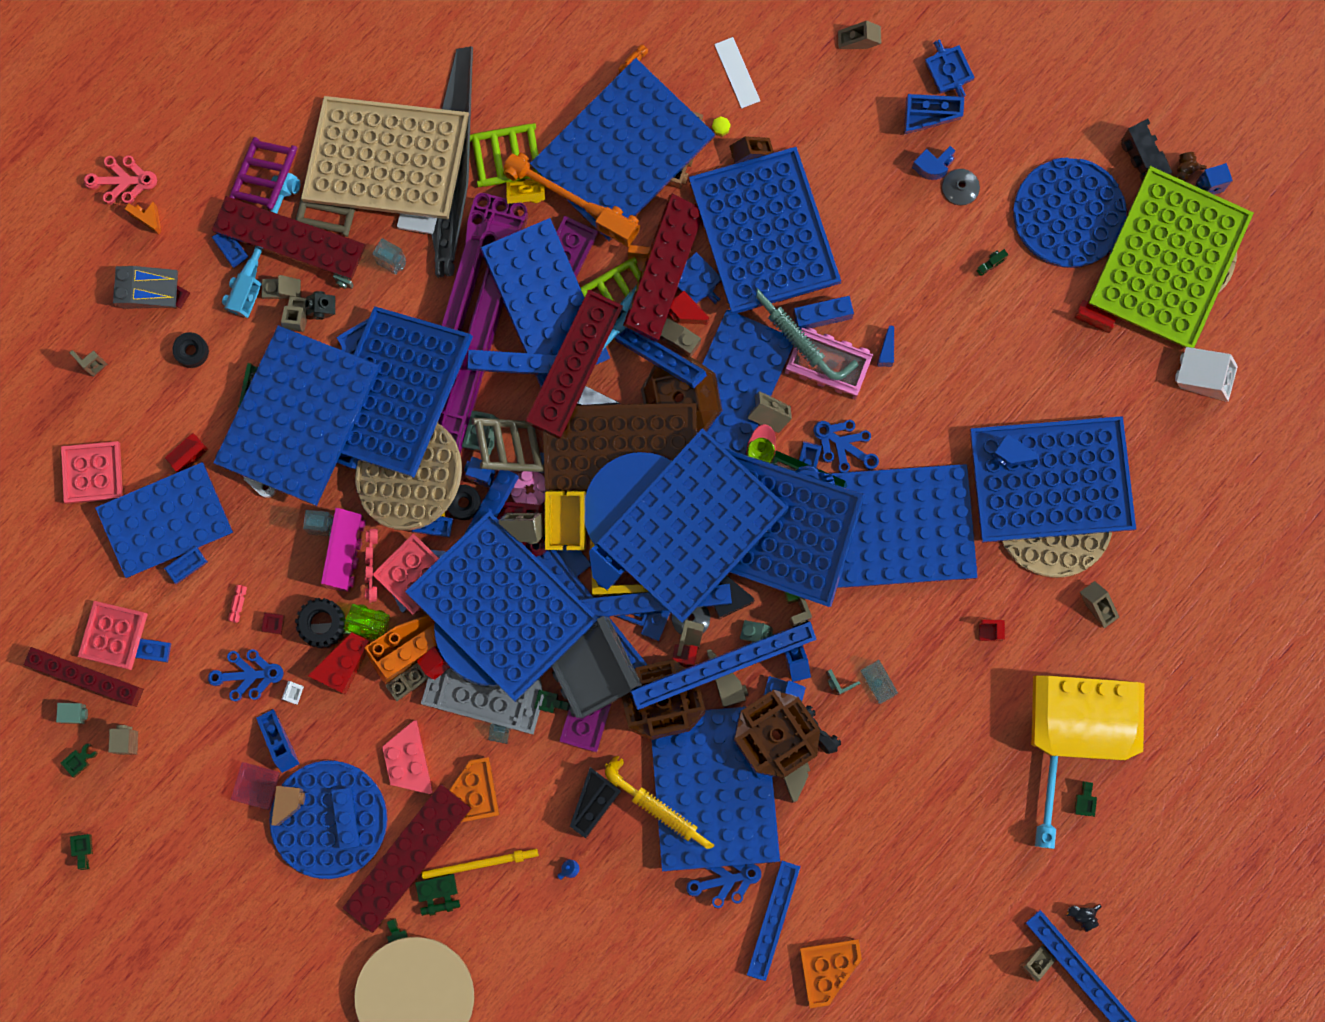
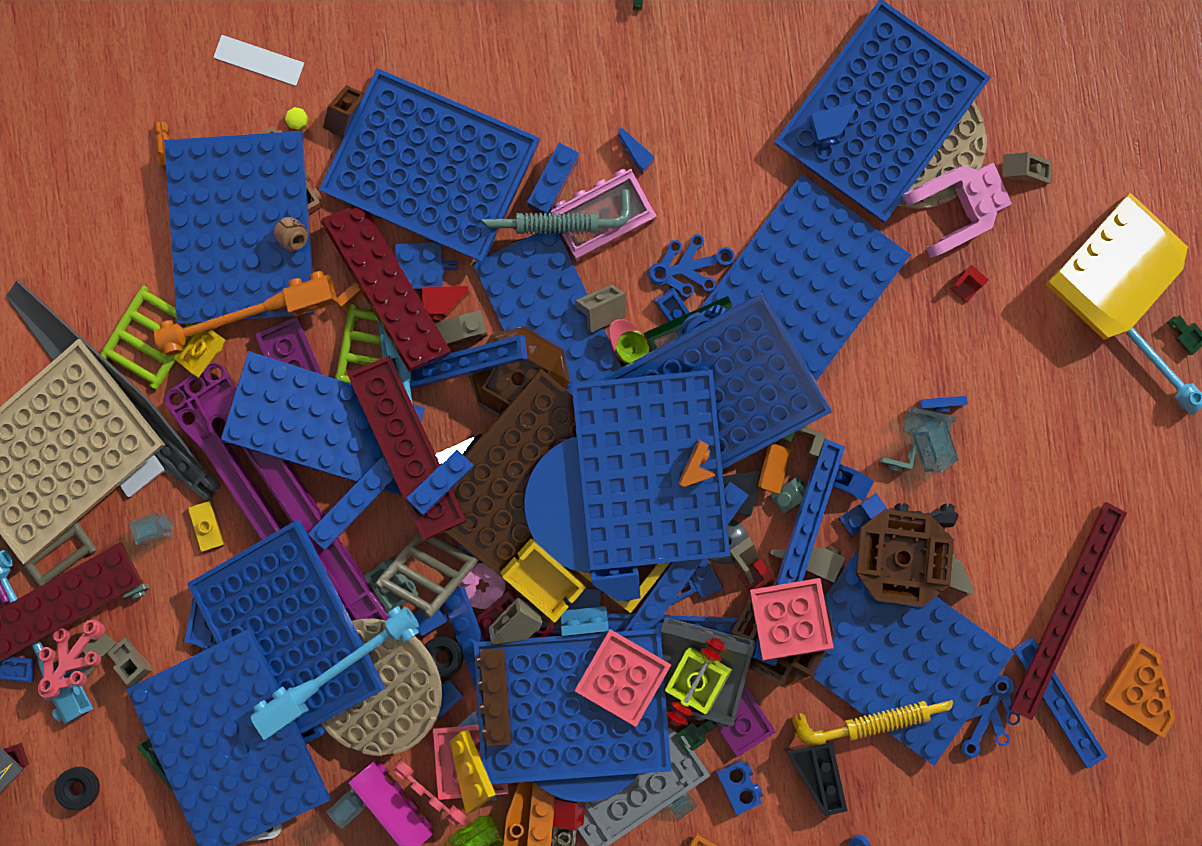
camera: 55 degrees left, 5 degrees up
(244, 277) = (68, 661): none -> coral plant
(320, 305) = (141, 632): pearl dark grey brick -> none
(353, 428) = (290, 703): none -> medium azure bar
(406, 578) = (471, 774): none -> yellow wing
(419, 289) = (206, 526): none -> yellow plate
(467, 551) = (496, 697): none -> reddish brown brick
(536, 756) = (734, 788): none -> blue brick
(547, 620) = (623, 677): none -> coral plate
(562, 569) = (584, 621): none -> dark azure bracket
(570, 401) = (440, 482): none -> blue plate
(585, 669) = (697, 681): none -> neon yellow brick
(645, 181) = (290, 234): none -> medium nougat head
(675, 693) = (791, 619): none -> coral plate
(714, 550) = (693, 471): none -> orange slope
(762, 606) = (774, 468): none -> orange panel
(837, 873) = (1067, 611): none -> dark red plate
(867, 695) = (934, 445): none -> clear light blue brick
(899, 679) = (942, 404): none -> blue plate
(1055, 588) = (980, 195): none -> bright pink plate

